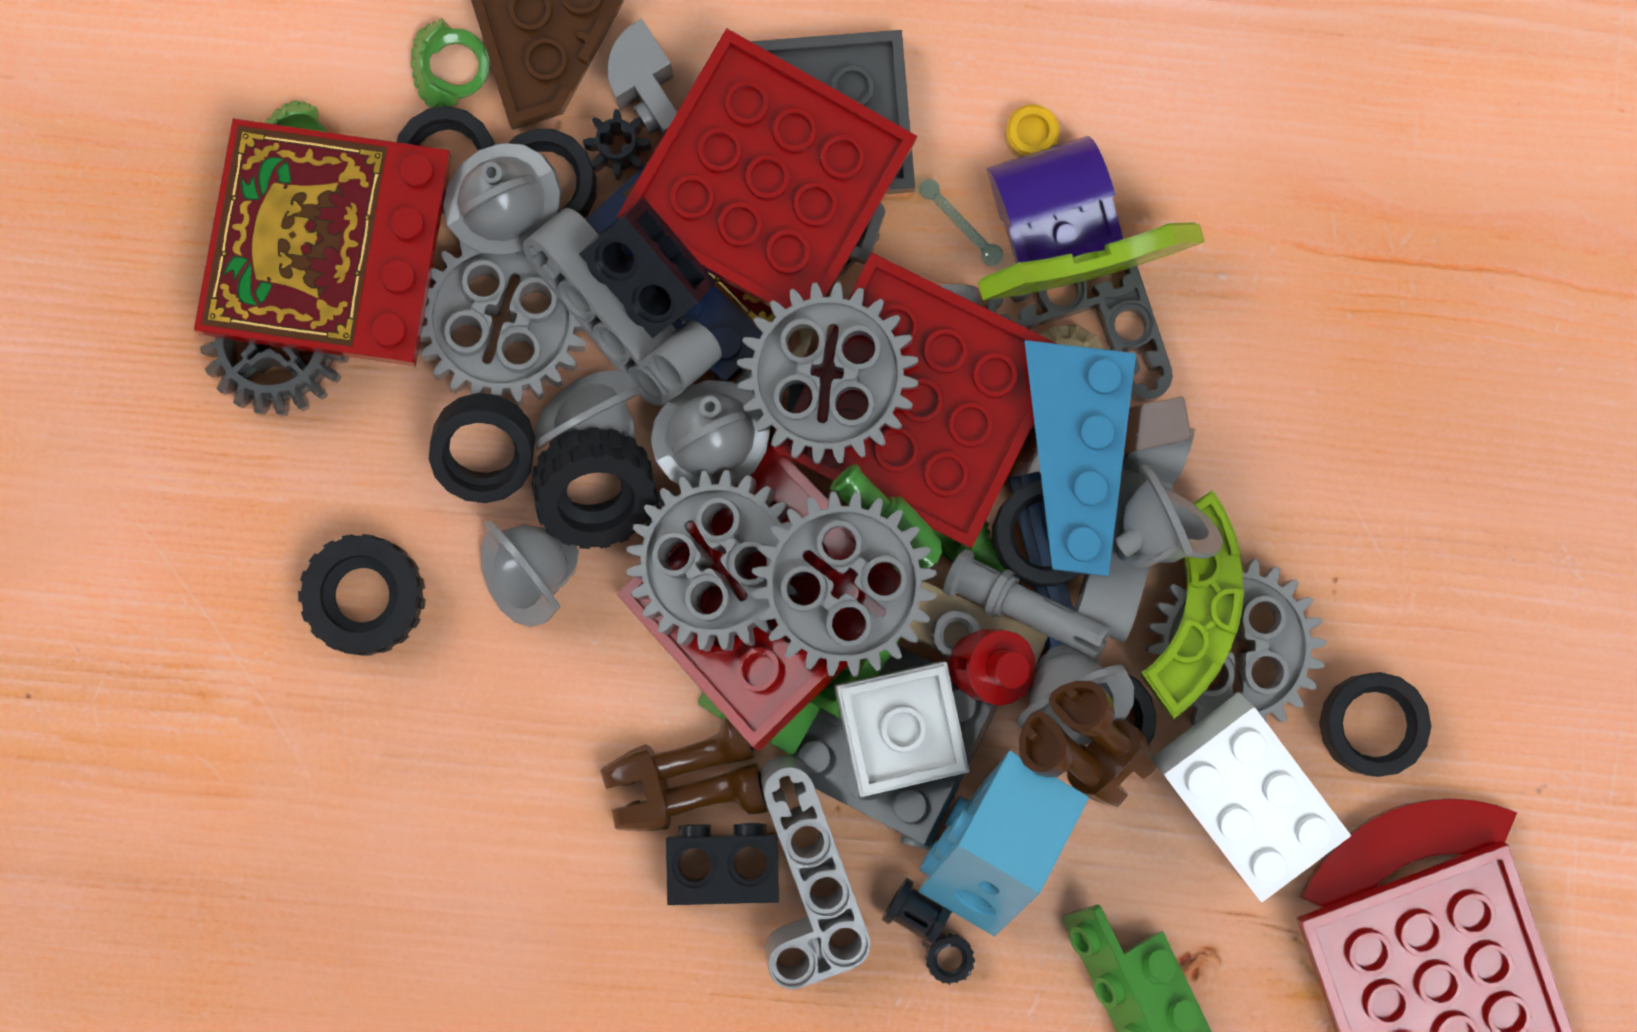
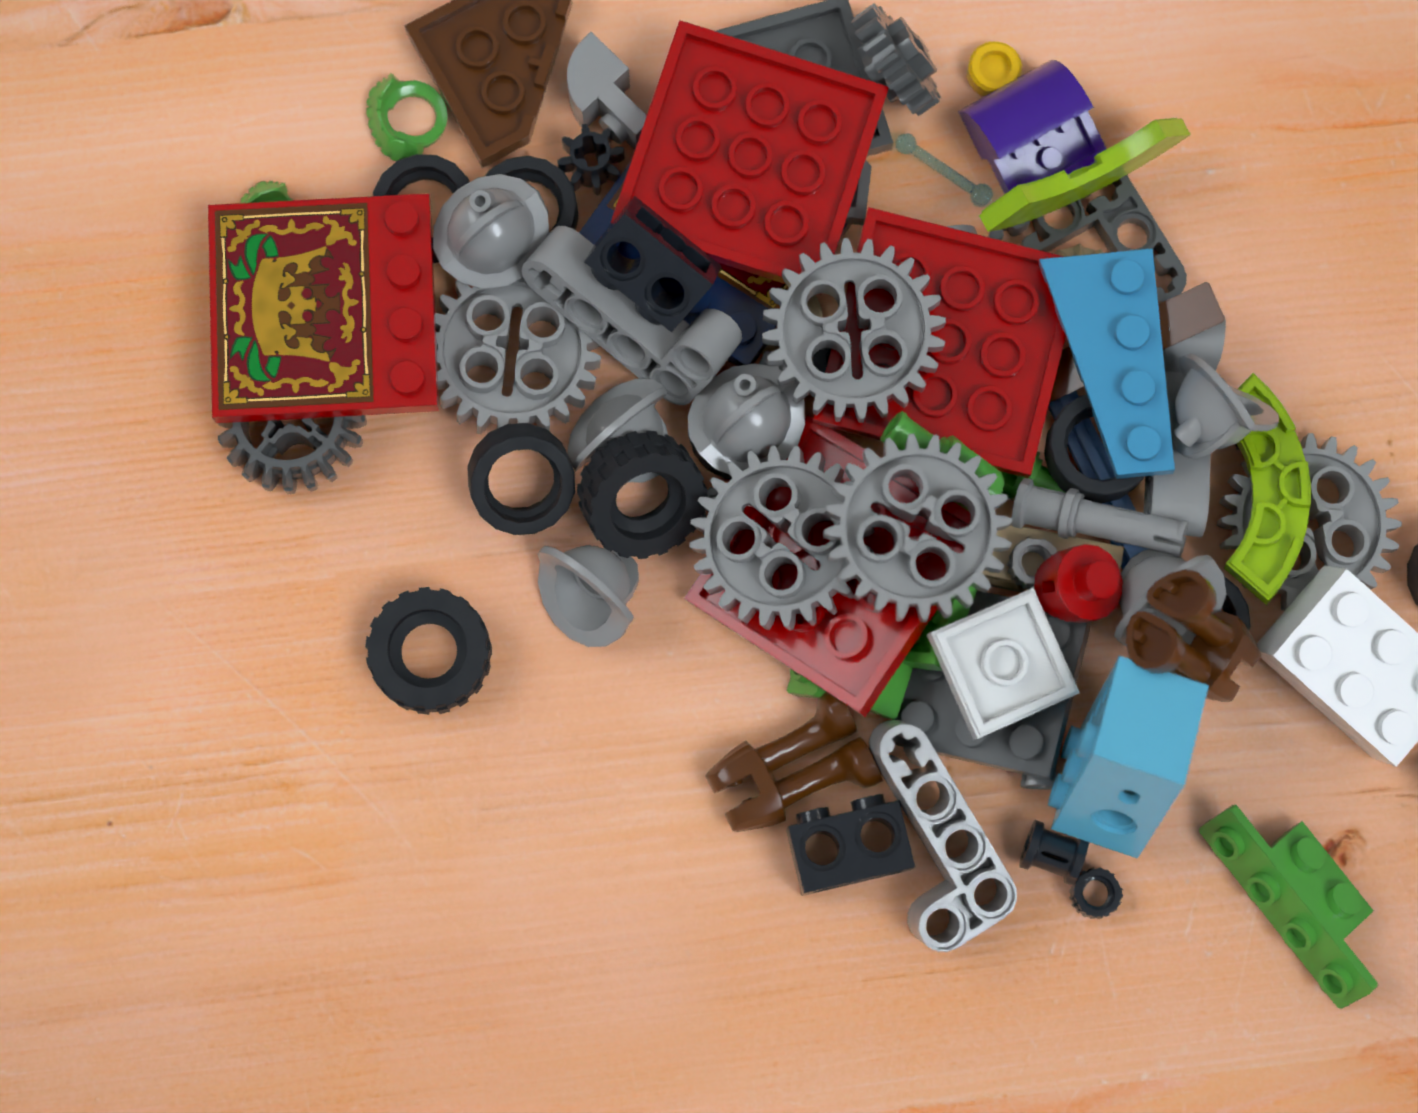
camera: 10 degrees left, 5 degrees down
(933, 107) = (896, 59): none -> dark grey gear

